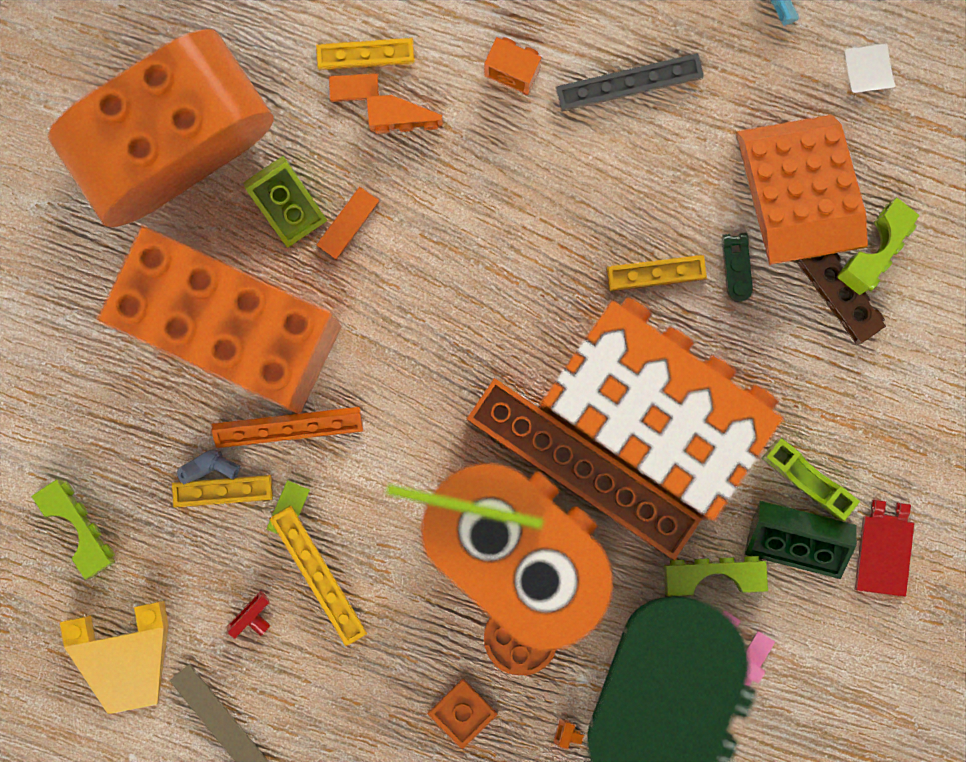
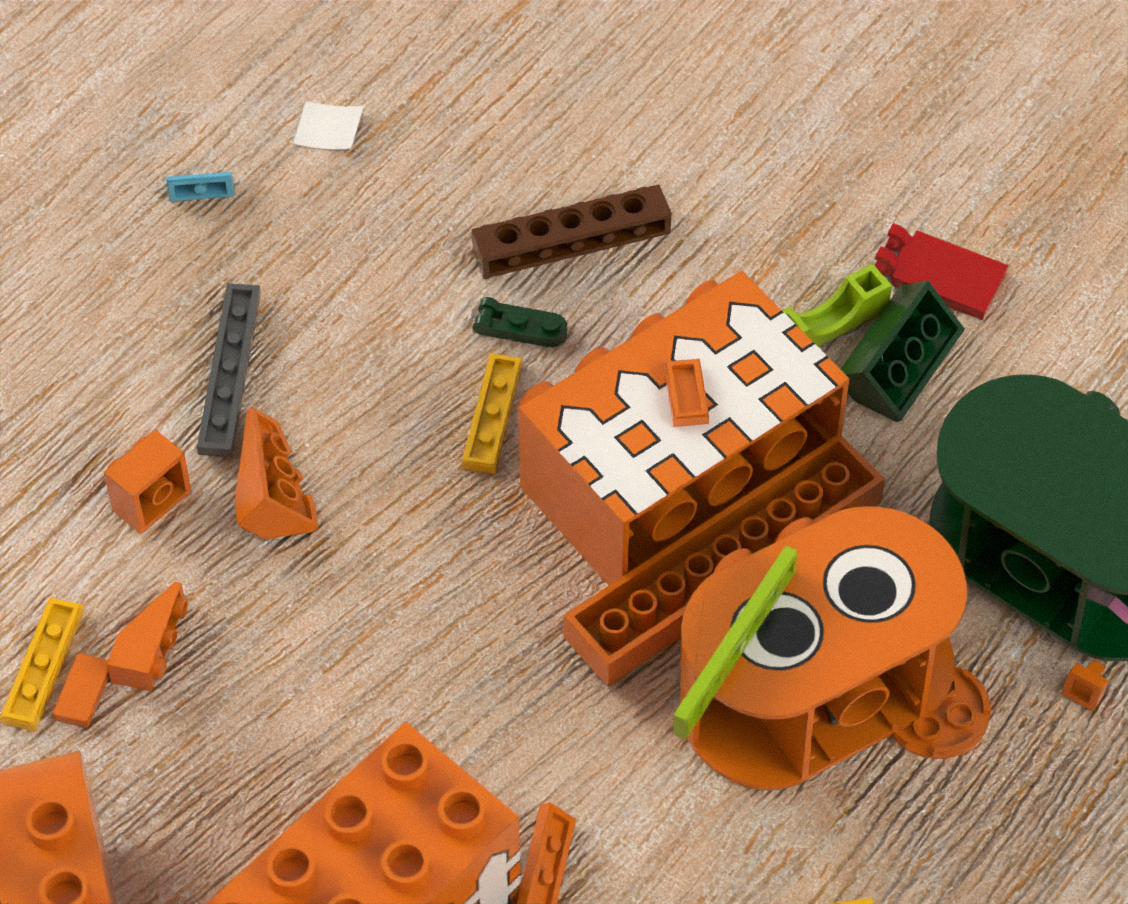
camera: 70 degrees left, 30 degrees down
(284, 201) = (202, 819): lime slope -> none
(348, 223) = (271, 753): orange tile -> none
(462, 713) = (1022, 810): orange tile -> none
(540, 147) = (268, 485): none -> orange wedge
(661, 411) = (686, 392): none -> orange tile
(747, 574) = (912, 485): lime arch -> none
(804, 189) = (451, 213): orange slope -> none
(893, 225) = (579, 178): lime arch -> none

